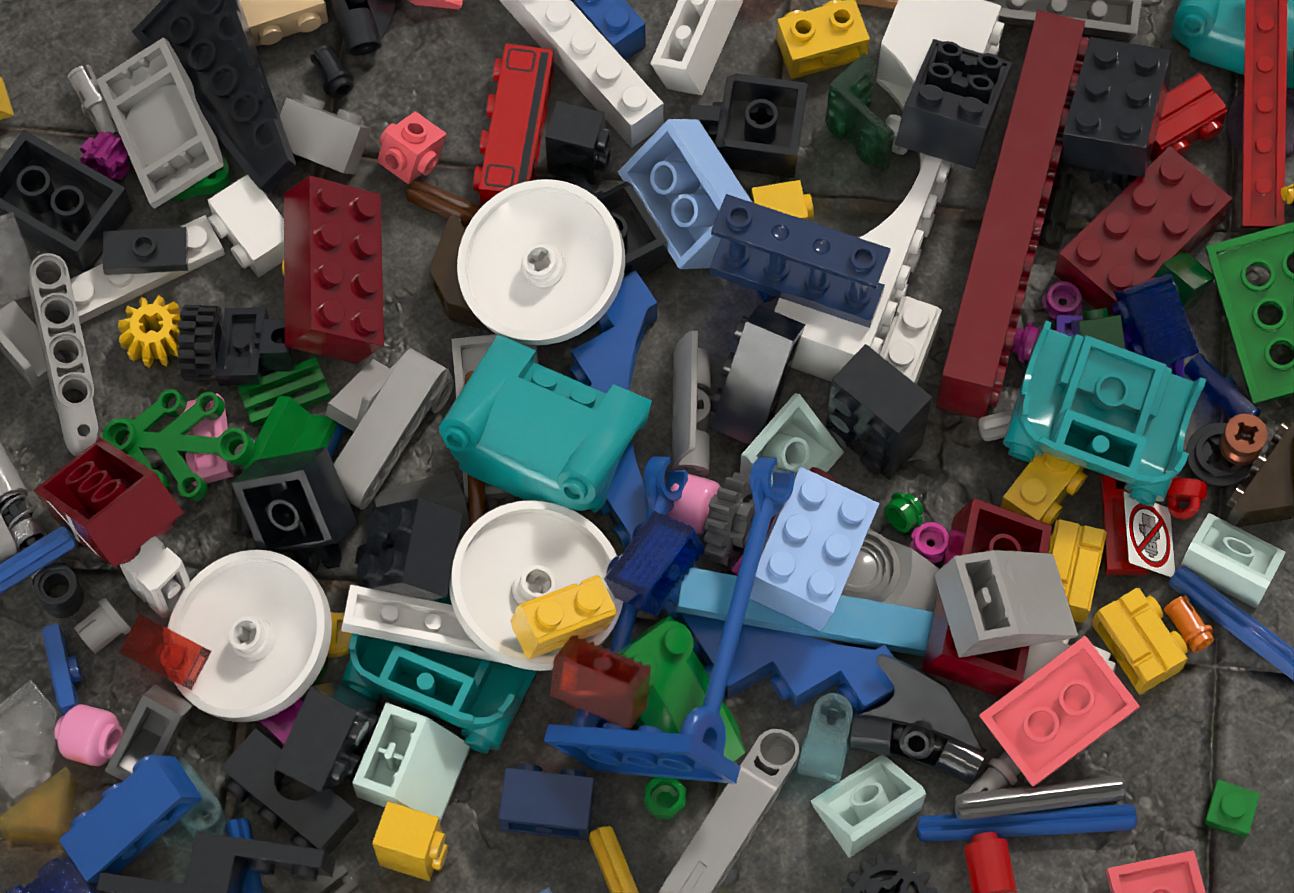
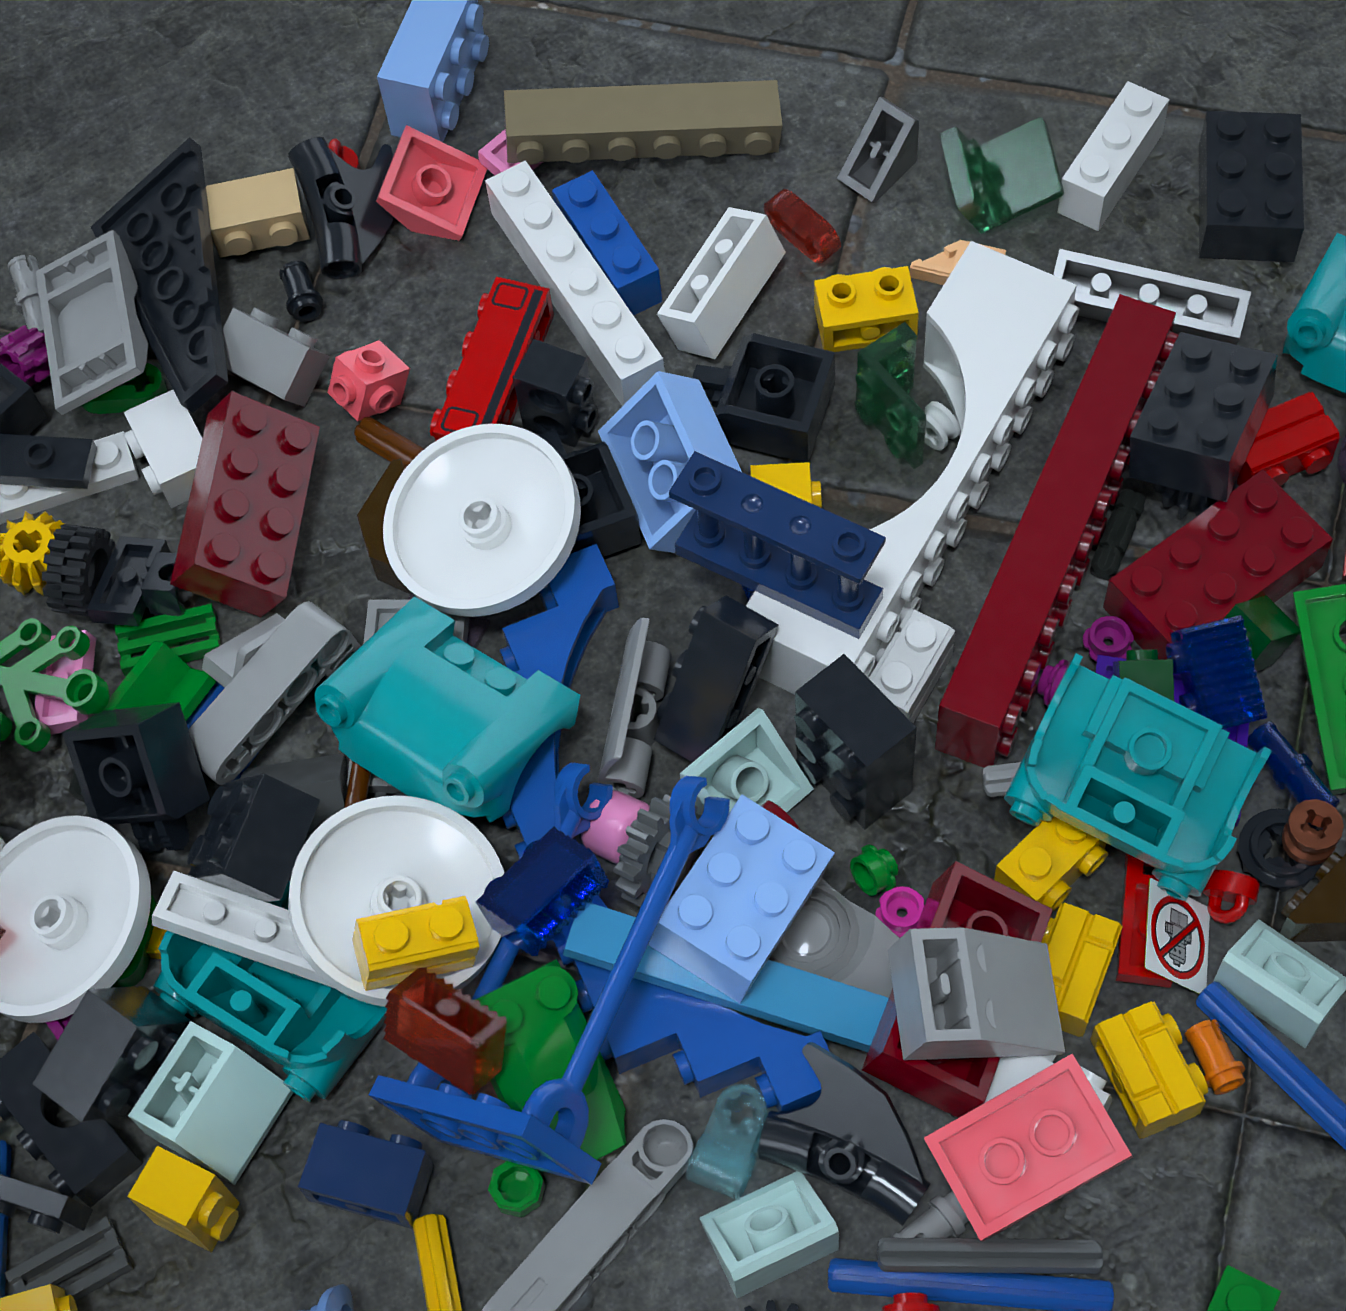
camera: 15 degrees right, 5 degrees down
(953, 103) = (999, 387): black slope -> none

